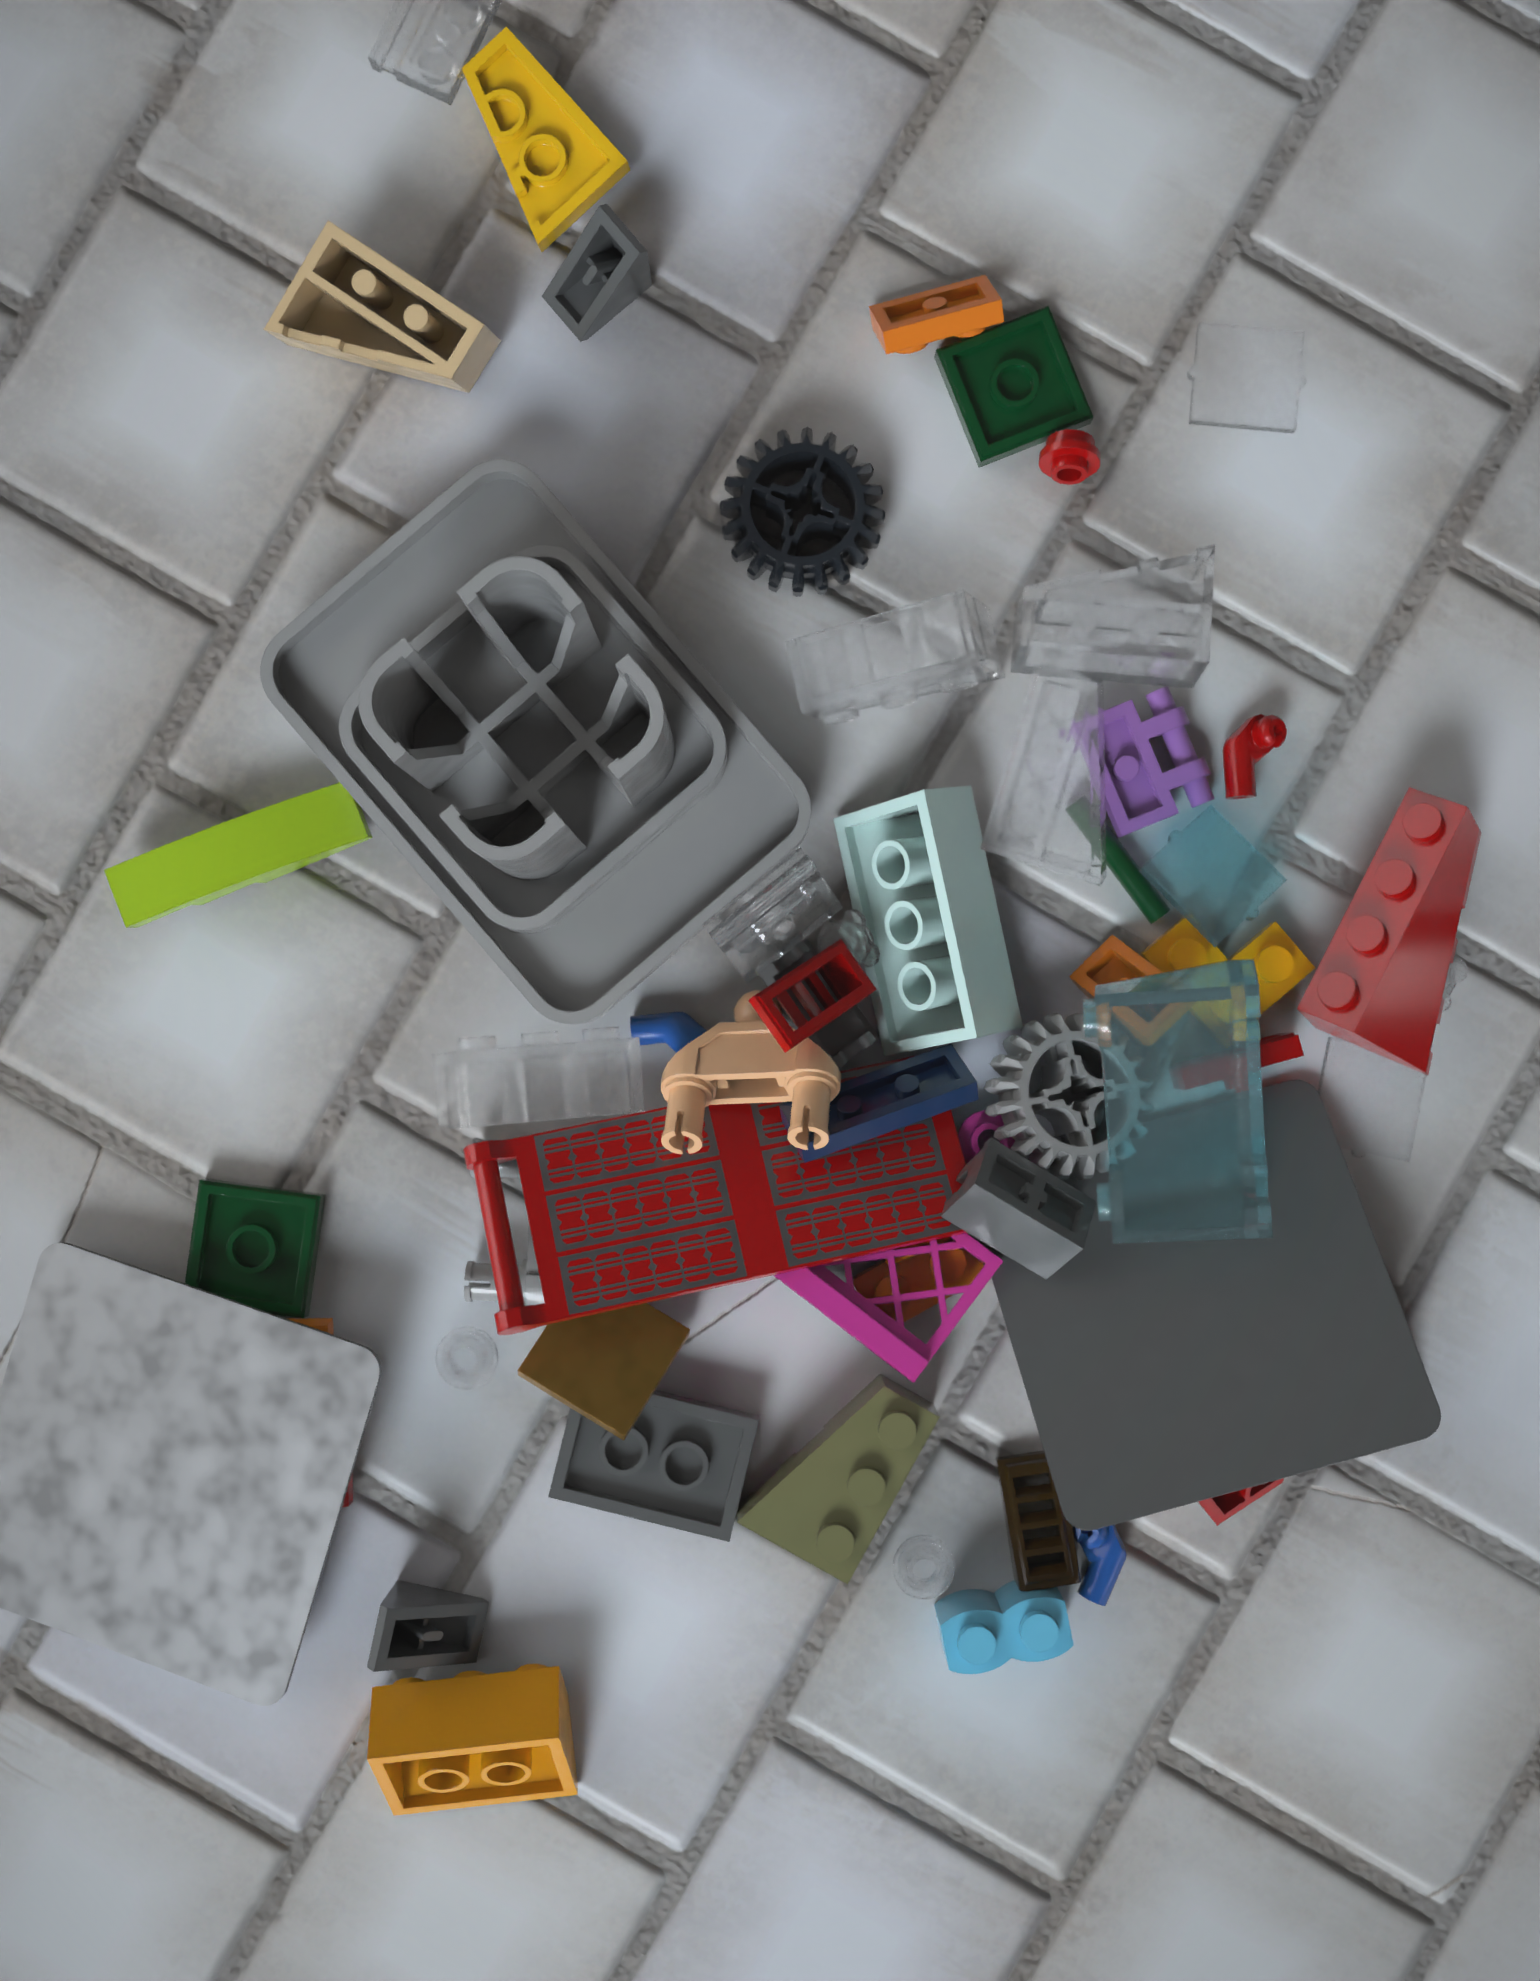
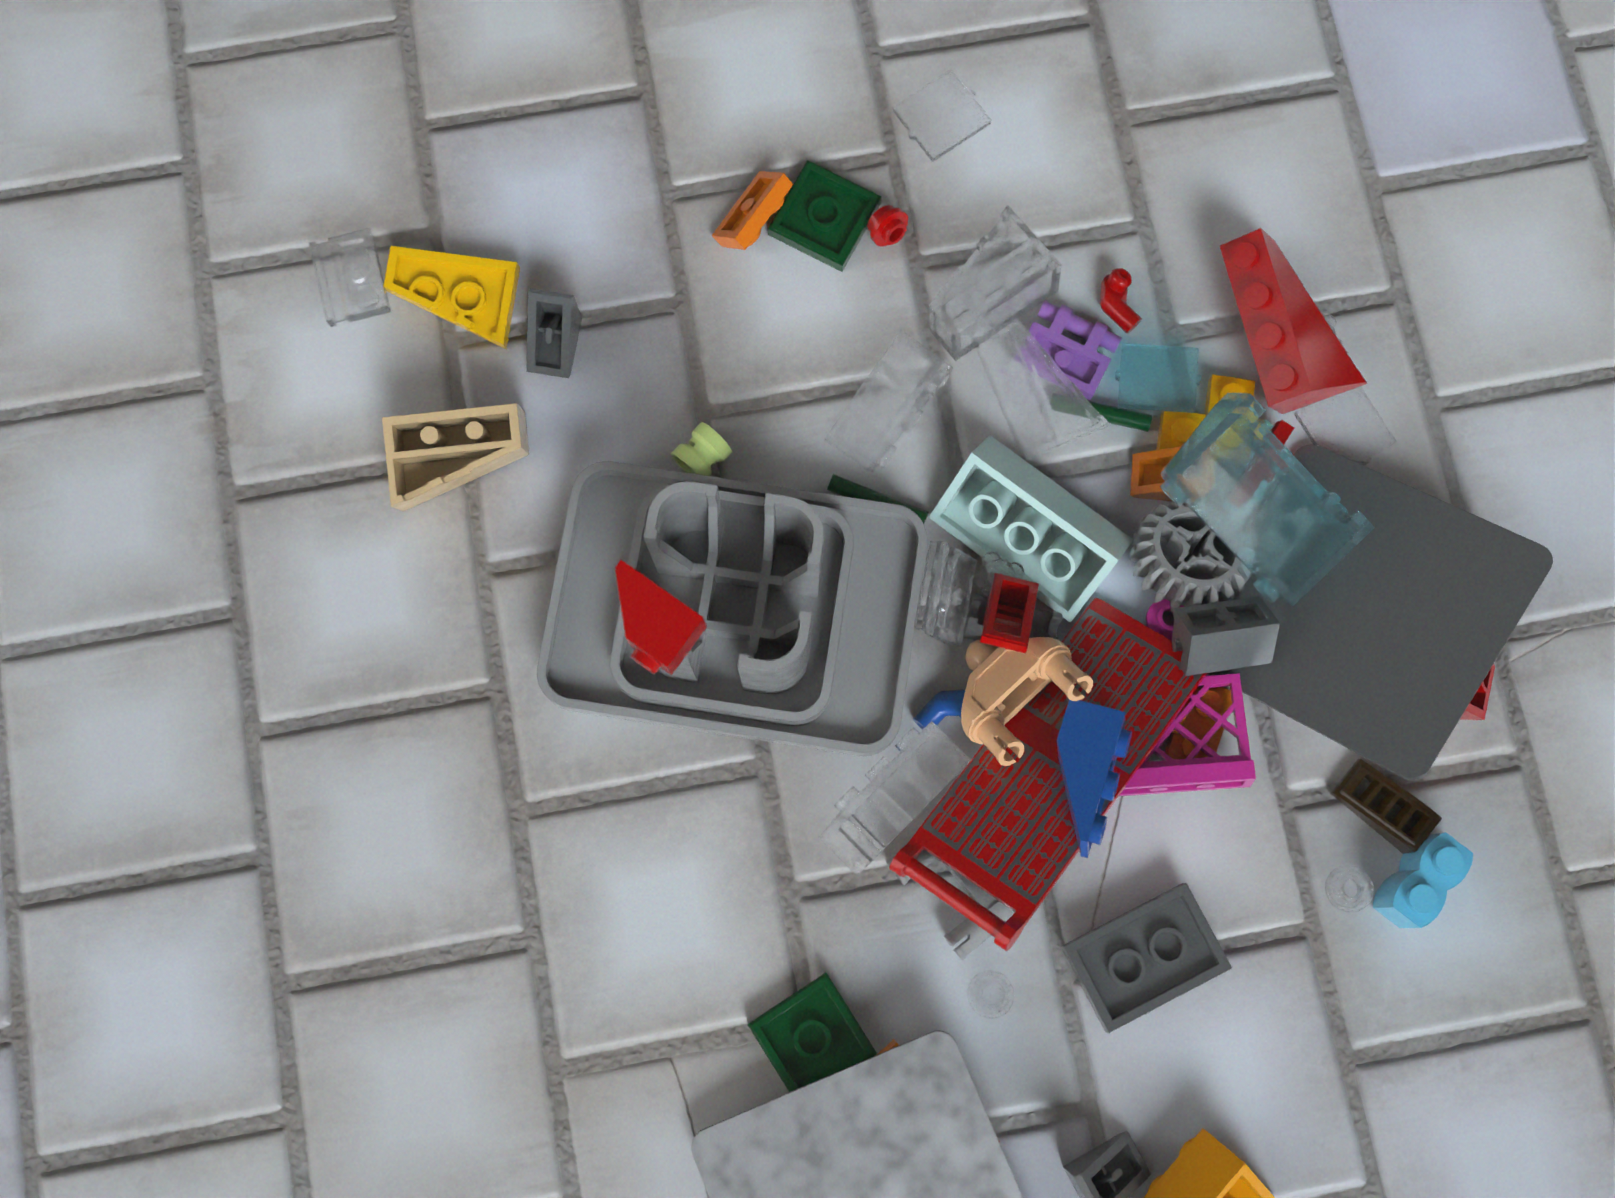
camera: 40 degrees left, 10 degrees down
(237, 854) = (613, 814): lime slope -> none
(382, 694) = (655, 621): none -> red slope
(606, 1363) = (1073, 924): pearl gold tile -> none
(648, 544) = (703, 450): none -> yellowish green wheel
(758, 1211) = (1087, 754): none -> blue slope
(781, 502) = (787, 361): black gear -> none
(793, 752) = (854, 490): none -> dark green piece
(844, 1480) = (1263, 873): olive wedge -> none
(893, 1099) = (1100, 635): dark blue plate -> none
(1106, 1558) = (1439, 794): blue arm -> none

